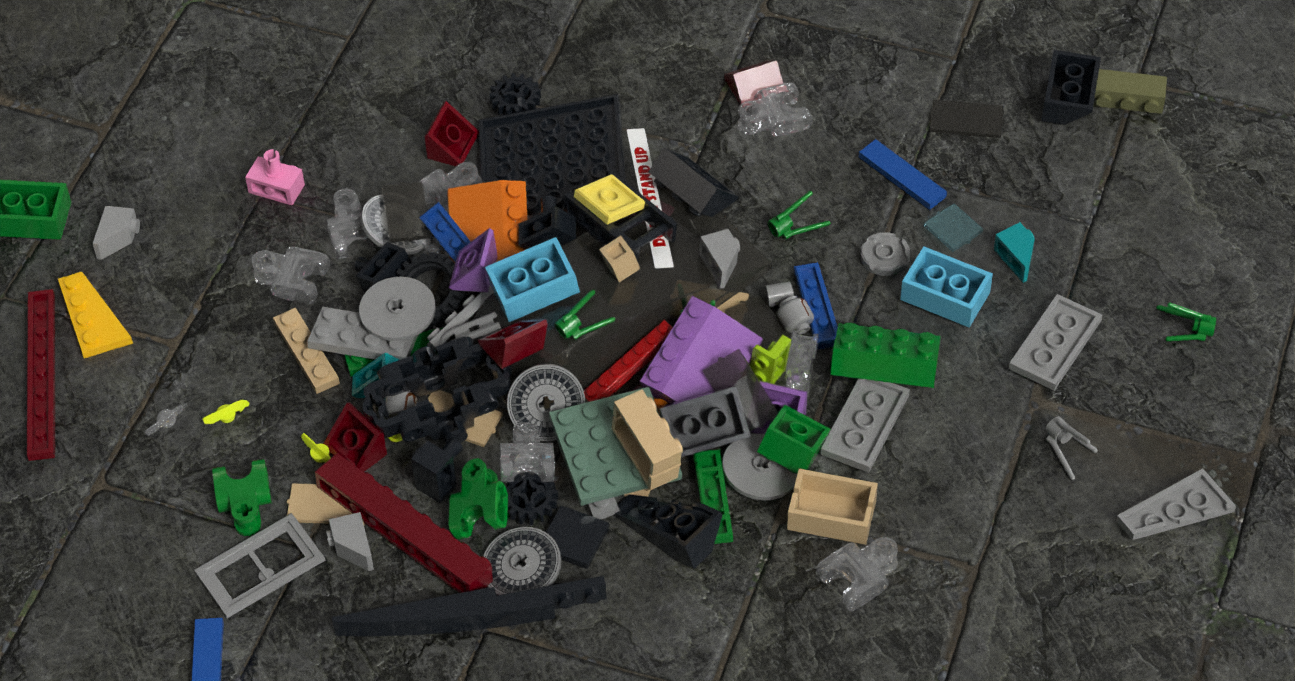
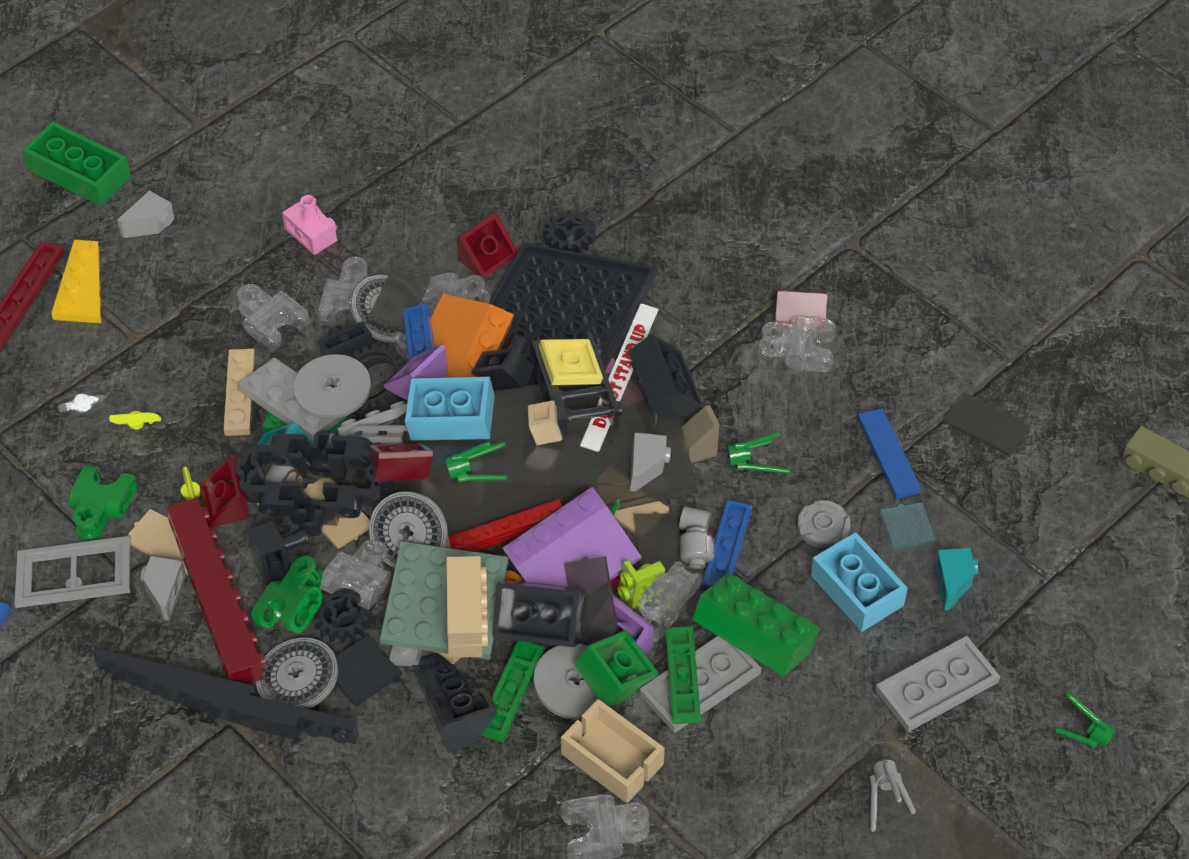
camera: 25 degrees right, 0 degrees up
(746, 215) = (702, 435): none -> dark tan slope
(851, 421) = (683, 675): none -> green plate
(1070, 87) = (1103, 433): black slope -> none

